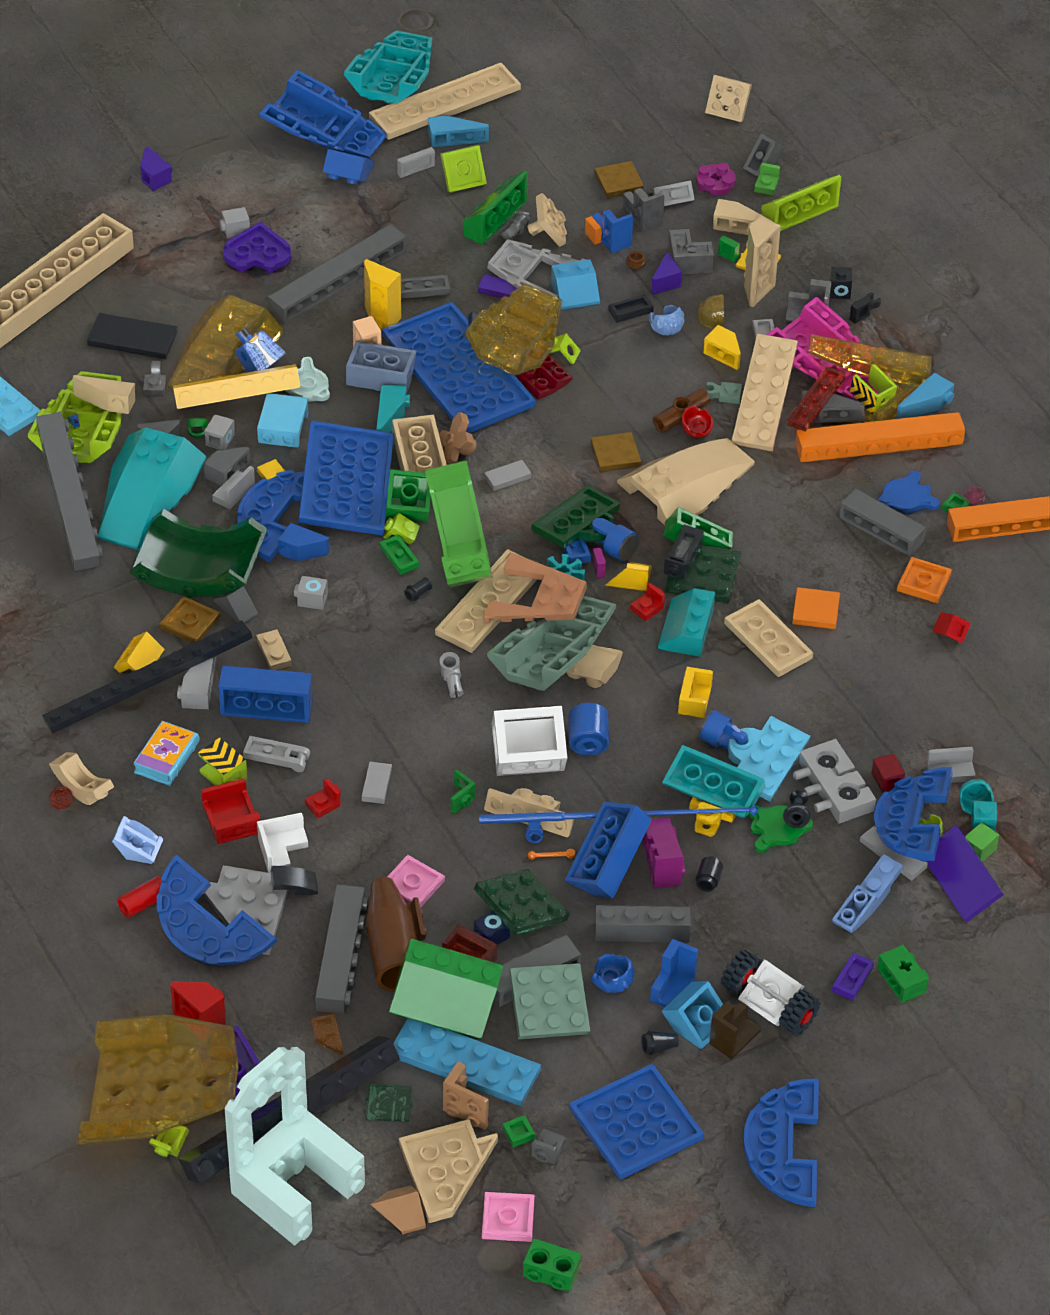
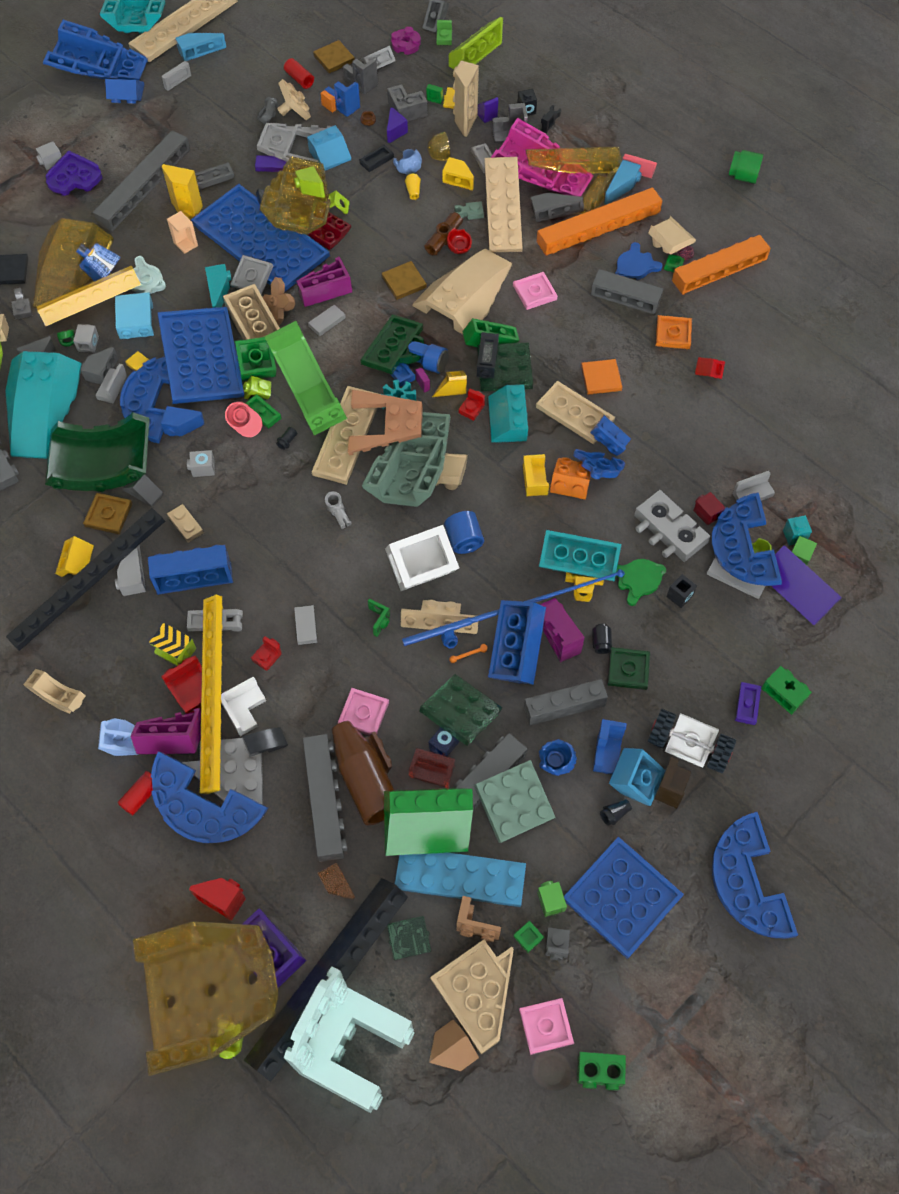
camera: 15 degrees left, 15 degrees up
(61, 797) = (42, 711): clear red tile -> none
(166, 753) = (121, 644): piece -> none
(197, 849) = (169, 736): none -> magenta wedge
(250, 816) = (211, 695): none -> yellow plate
(374, 557) = (243, 419): none -> coral cap
(379, 365) = (198, 251): sand blue slope -> none
(435, 401) = (251, 272): none -> light grey tile
(463, 168) = (214, 72): lime tile -> none
(496, 209) = (249, 100): green slope -> none
(517, 434) = (325, 284): none -> magenta wedge
(535, 316) = (309, 182): none -> lime slope
(556, 1103) = (551, 898): none -> bright green brick
(567, 190) = (298, 73): none -> red pin
(664, 347) = (413, 185): none -> yellow cone
(730, 912) = (629, 668): none -> dark green tile
(733, 217) = (433, 68): tan slope -> none
(737, 703) = (570, 478): none -> orange bracket
(762, 752) = (605, 516): medium azure plate -> none
(771, 497) = (535, 290): none -> bright pink tile
(774, 697) = (599, 465): none -> blue tile
(788, 281) = (488, 110): none -> dark purple slope
(797, 814) = (654, 567): black piece -> none
(799, 670) = (610, 436): none -> blue bracket
(816, 399) = (545, 201): clear red plate -> none
(819, 846) = (681, 591): none -> black brick
(868, 895) = (733, 624): medium blue slope -> none
(880, 382) = (584, 184): lime piece -> none
(960, 471) = (670, 236): none -> tan slope
(963, 389) = (647, 167): none -> coral panel
(974, 791) = (783, 510): teal hair -> none

